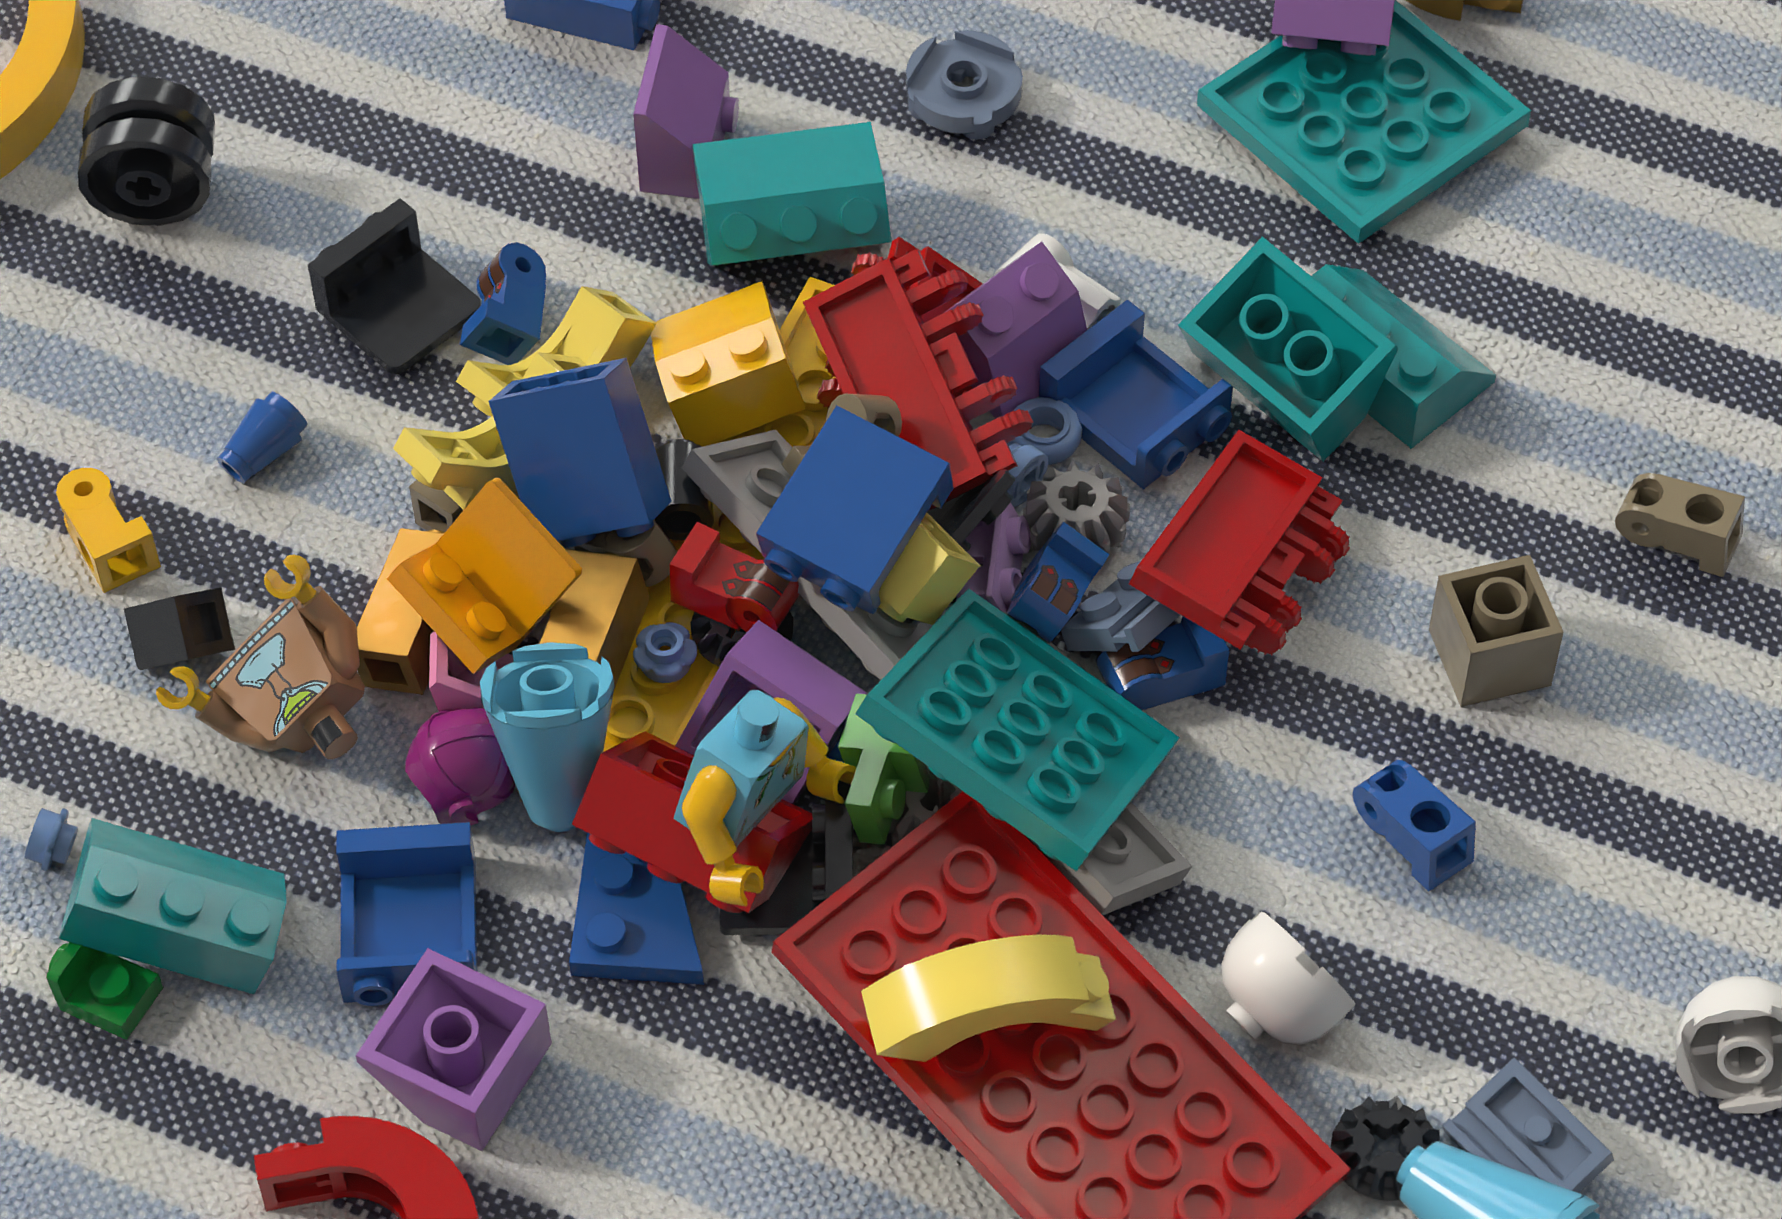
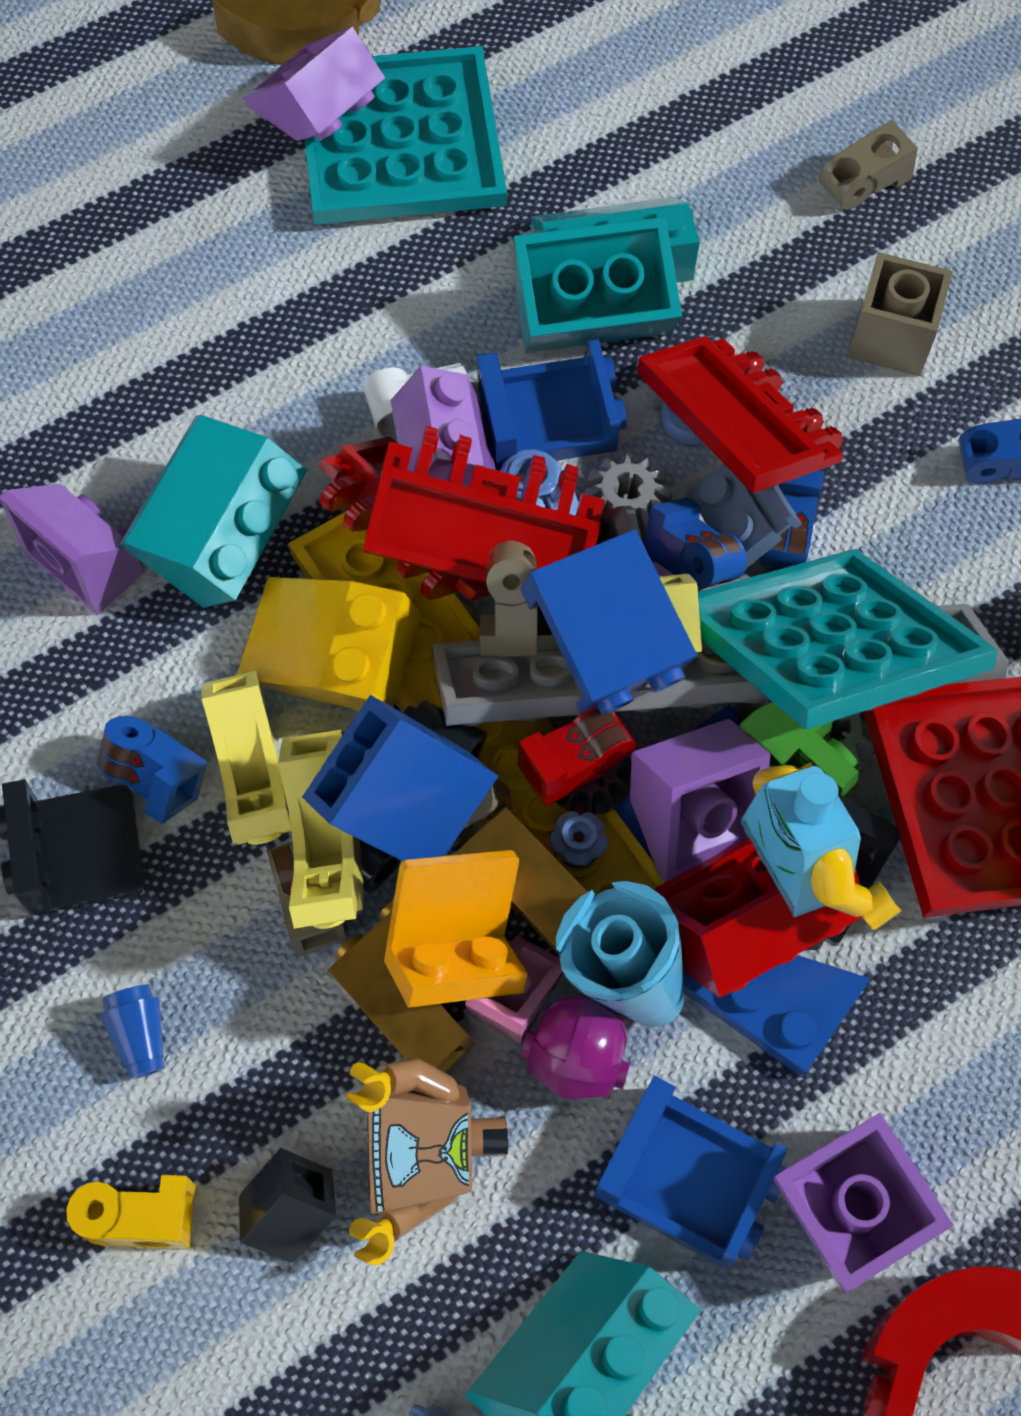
camera: 60 degrees left, 10 degrees up
(958, 109) = (188, 370): sand blue plate -> none

